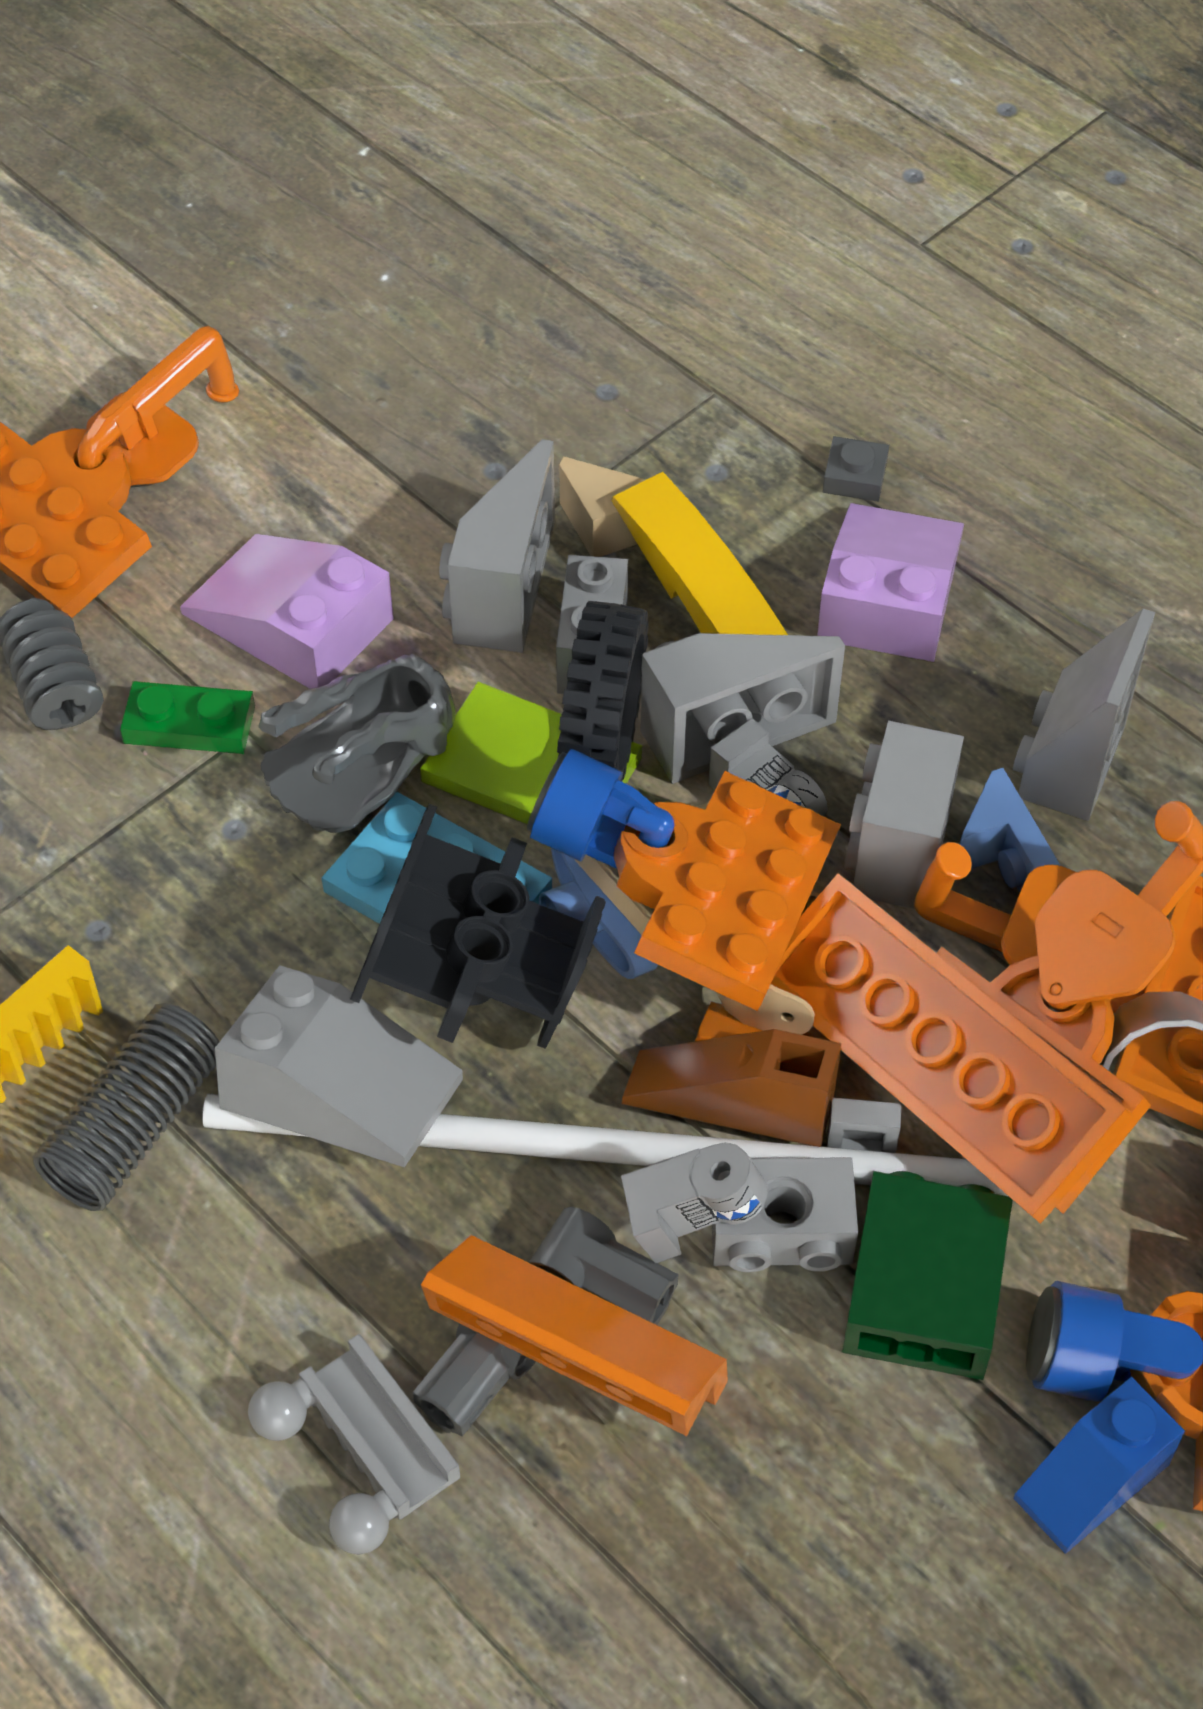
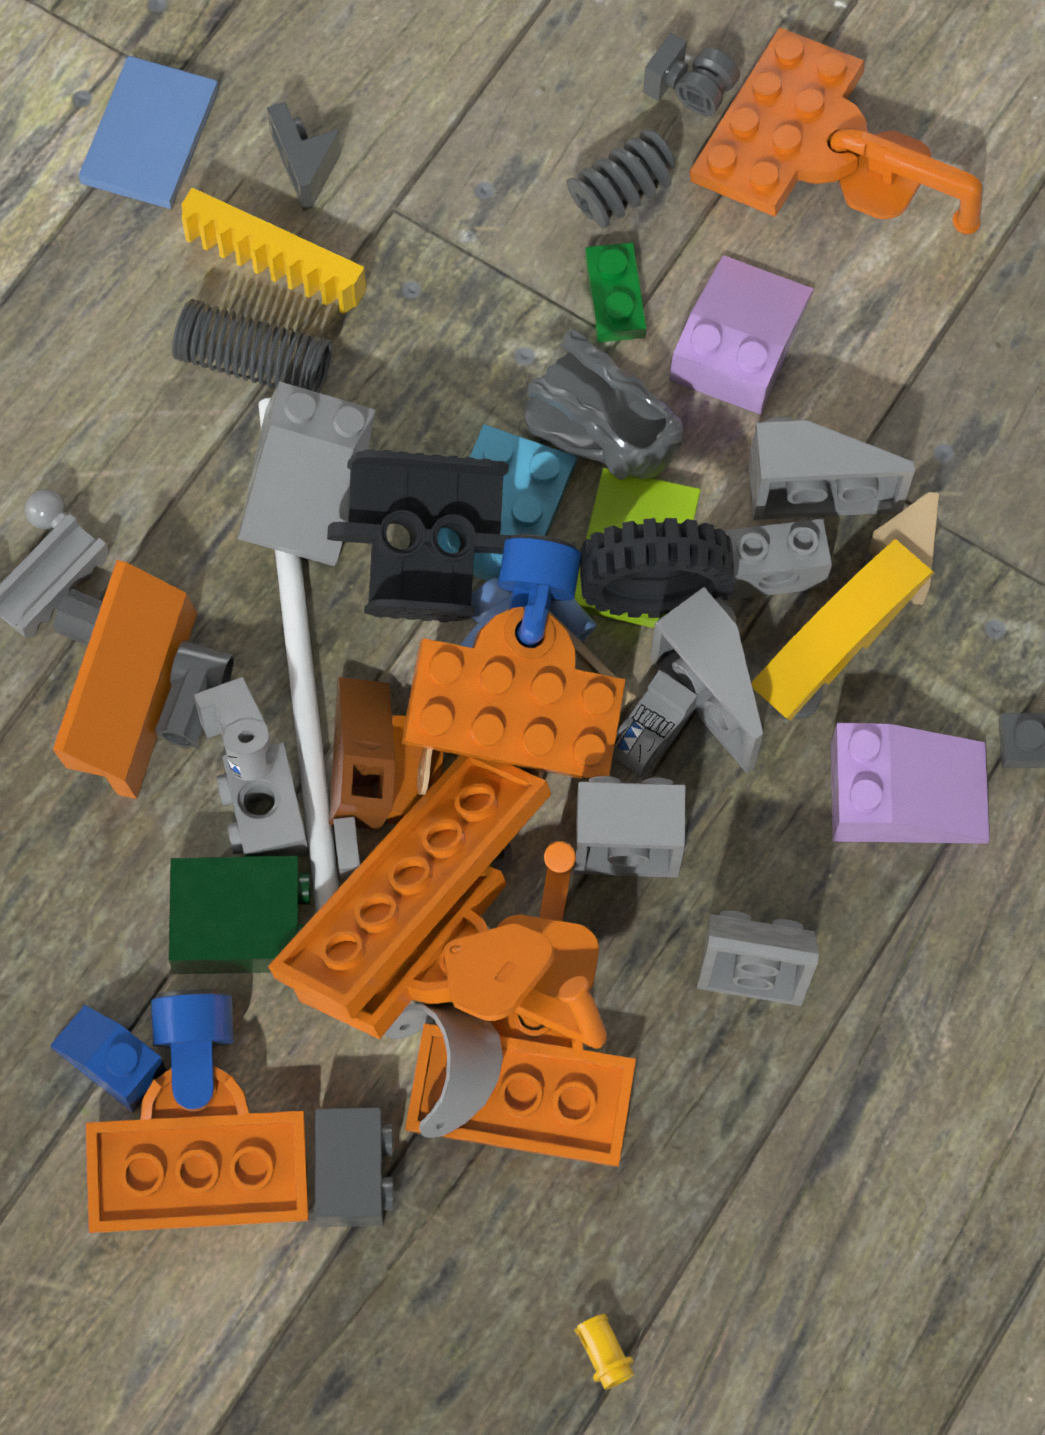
camera: 75 degrees right, 15 degrees up
(1005, 832) = (655, 910): medium blue slope -> none

